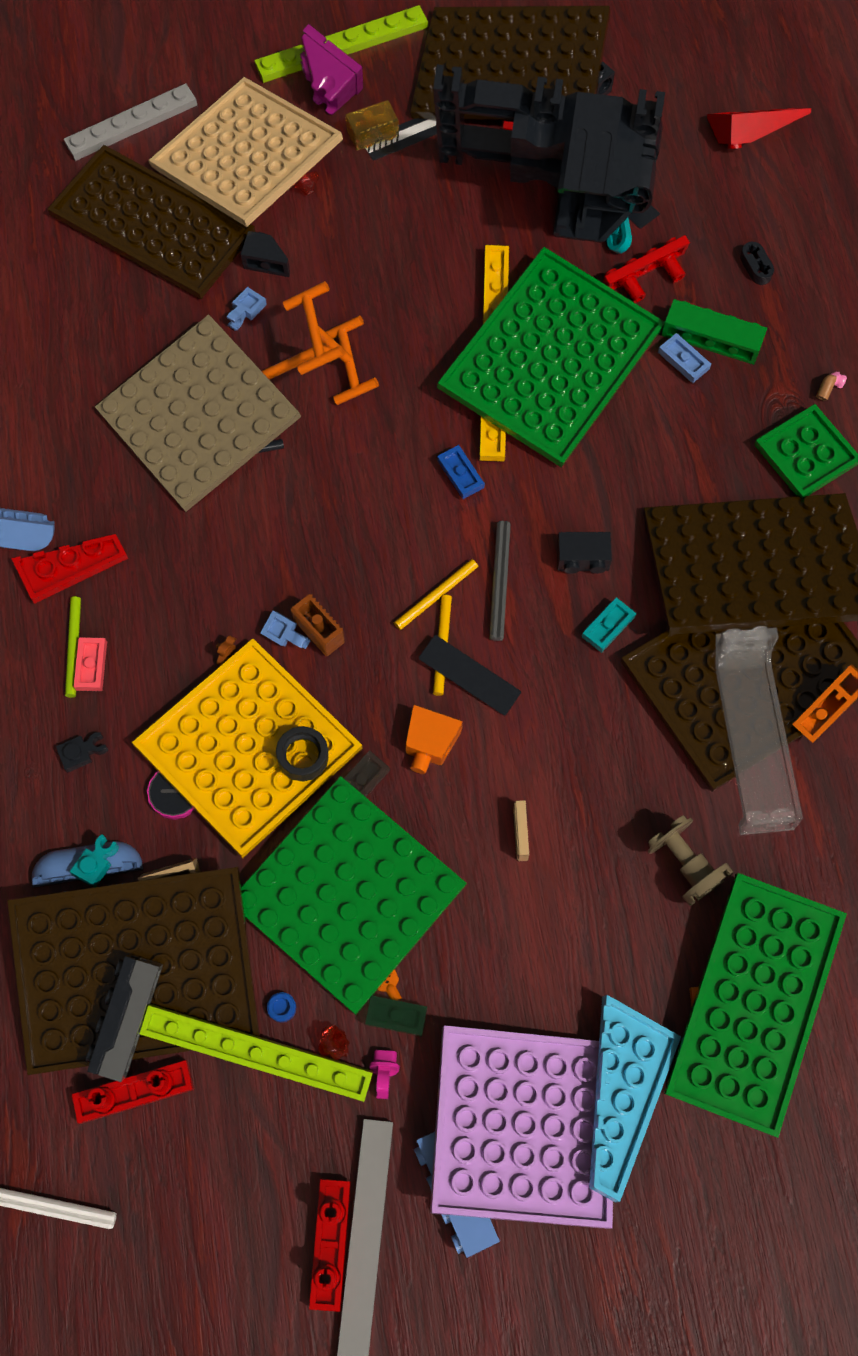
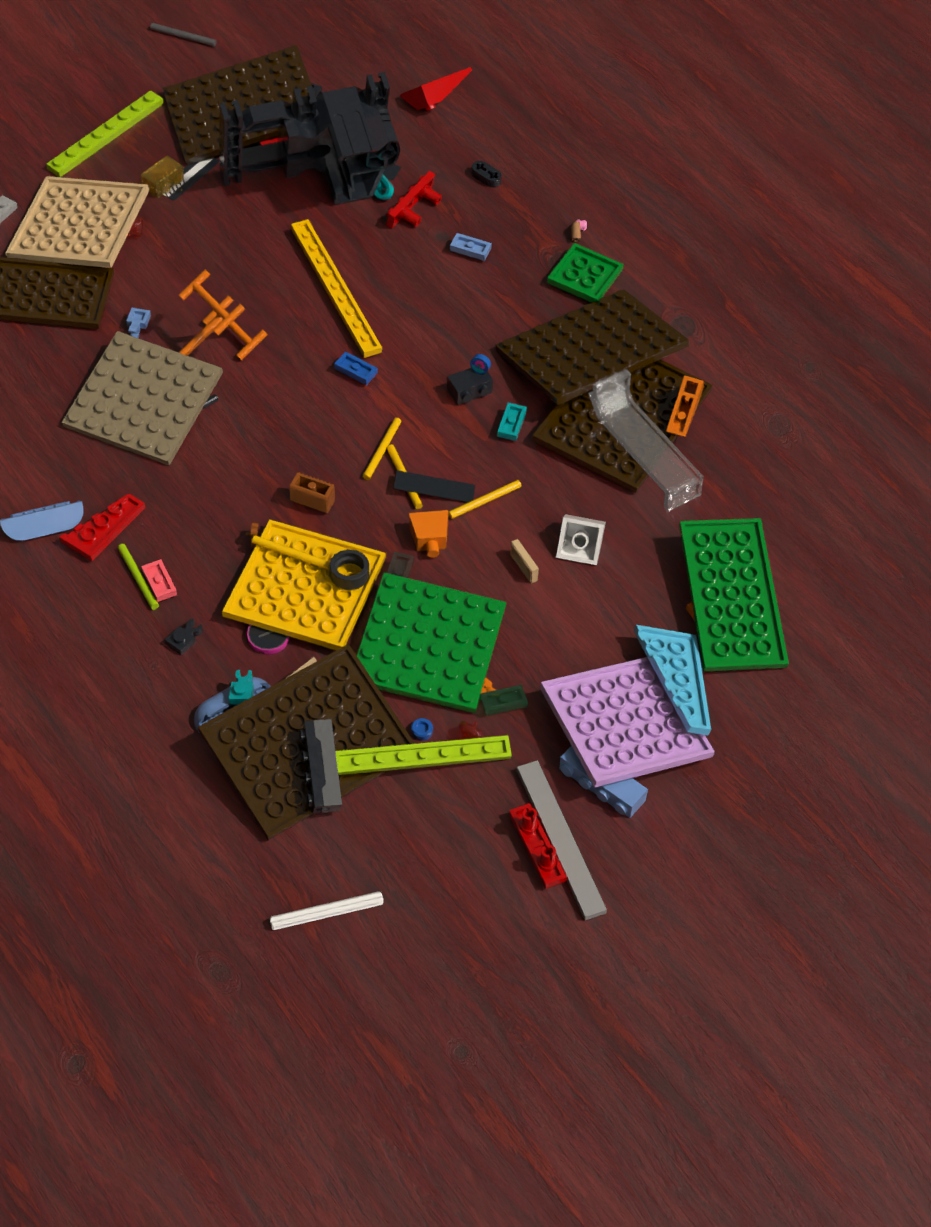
camera: 30 degrees left, 15 degrees down
(132, 1092) = (349, 817): red plate -> none
(250, 696) = (291, 552): none -> yellow bar
(264, 255) = (133, 284): black slope -> none
(281, 630) = (286, 507): medium blue plate -> none
(331, 71) = (112, 149): magenta piece -> none
(384, 1066) = (515, 734): dark pink piece -> none
(500, 581) = (421, 423): dark grey axle -> none
(523, 718) = (484, 499): none -> yellow bar
(551, 356) = (378, 275): green plate -> none
(604, 534) = (480, 363): none -> blue tile
(607, 830) = (580, 539): none -> white slope
(695, 868) = (651, 534): dark tan piece -> none
(714, 331) = (482, 223): green brick -> none

